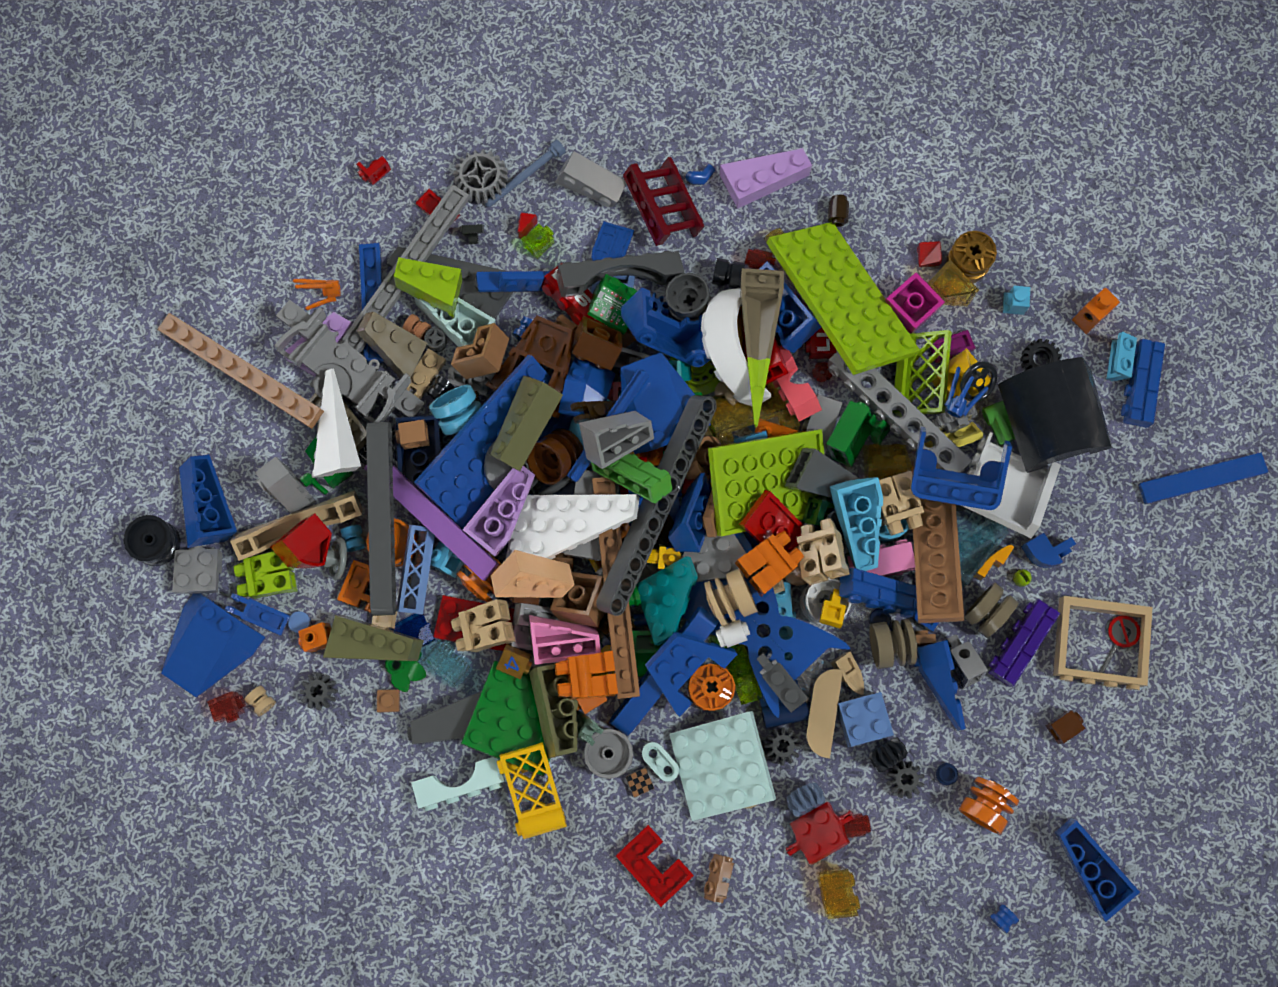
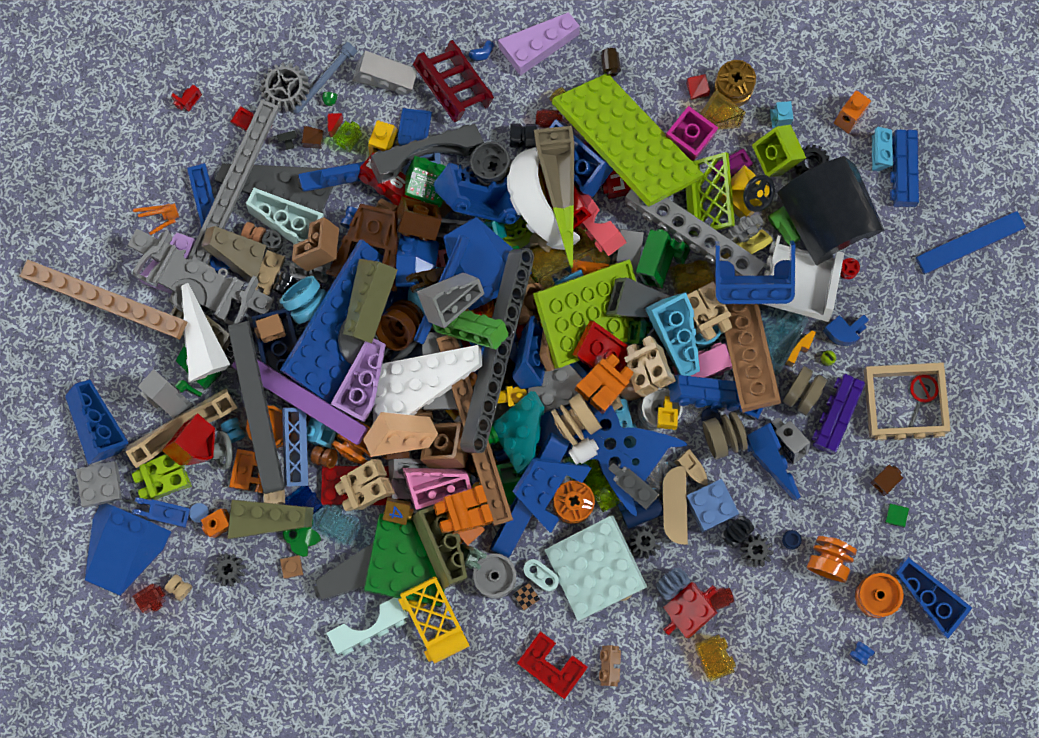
camera: 10 degrees left, 0 degrees up
(151, 540) = (53, 453): black wheel -> none
(429, 282) = (259, 191): lime wedge -> none
(447, 586) = (324, 456): none -> dark orange wheel
(500, 236) = (312, 137): none -> reddish brown slope
(526, 196) = (329, 98): none -> green hinge
(575, 248) = (382, 137): none -> yellow torso
(821, 366) = (621, 213): clear red plate -> none
(925, 638) = (751, 425): medium nougat plate -> none
(957, 406) = (744, 218): blue plant -> none
(1007, 339) = (778, 151): none -> lime brick
(1048, 853) = (889, 589): none -> orange wheel
(1064, 479) = (852, 265): none -> red wheel
(1069, 768) = (897, 515): none -> green tile

